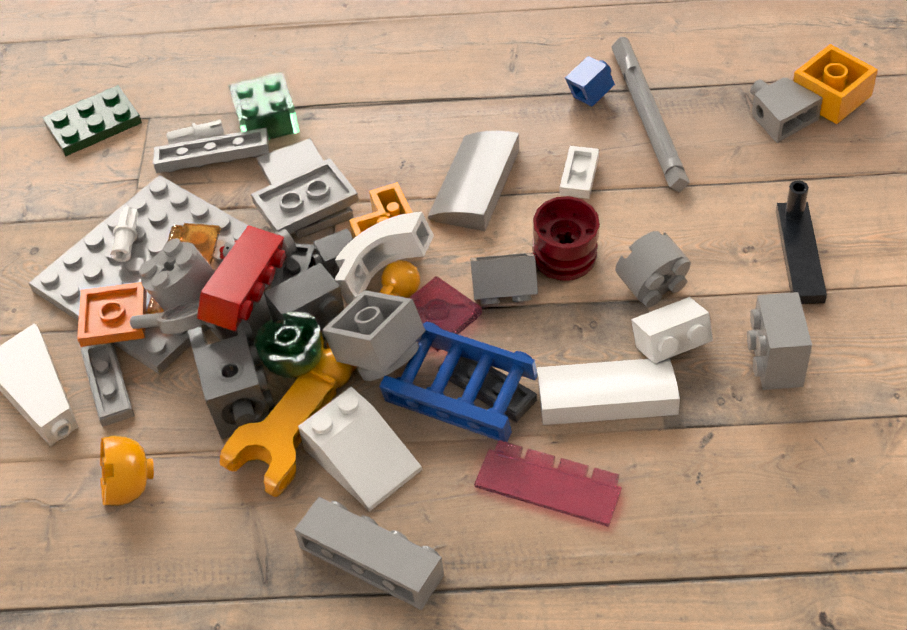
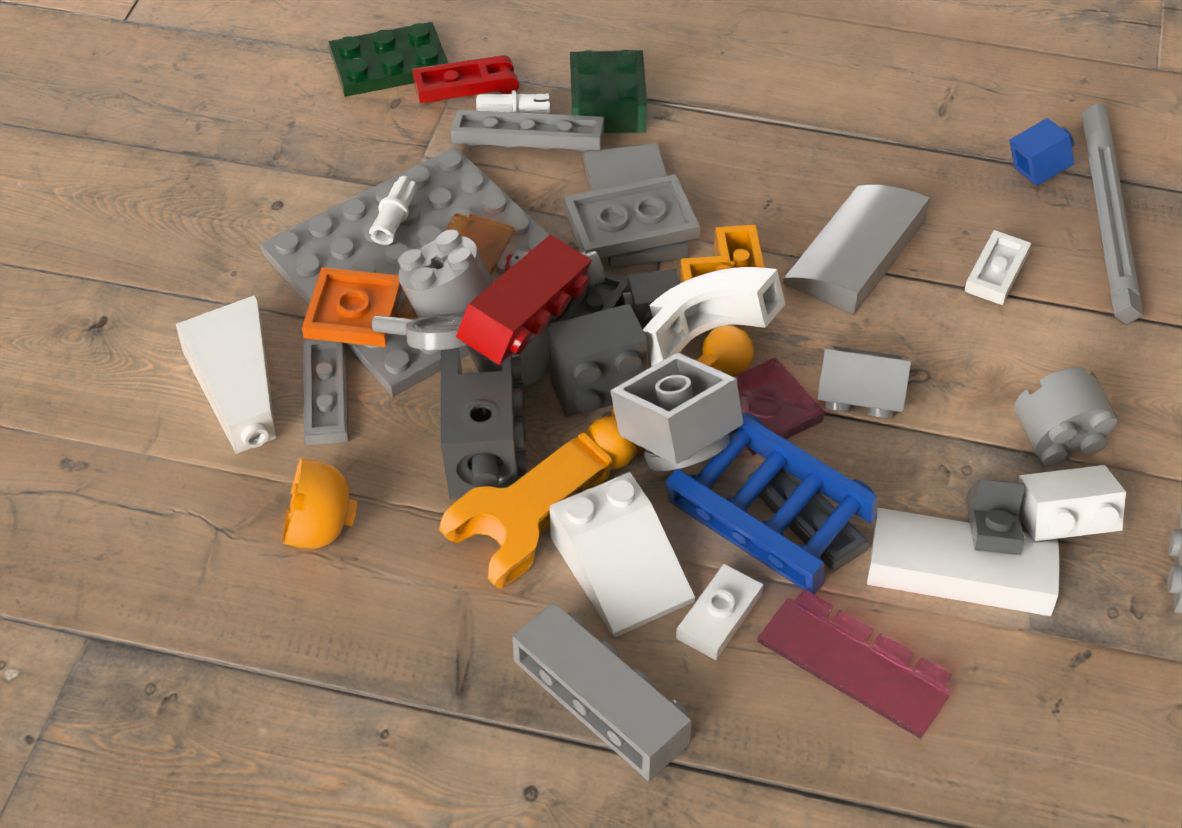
camera: 10 degrees right, 0 degrees up
(154, 122) = (465, 79): none -> red plate
(290, 344) = (566, 400): clear green cylinder -> none
(441, 472) = (719, 611): none -> white plate
(565, 238) = (957, 348): dark red wheel -> none
(621, 352) = (994, 516): none -> dark grey slope

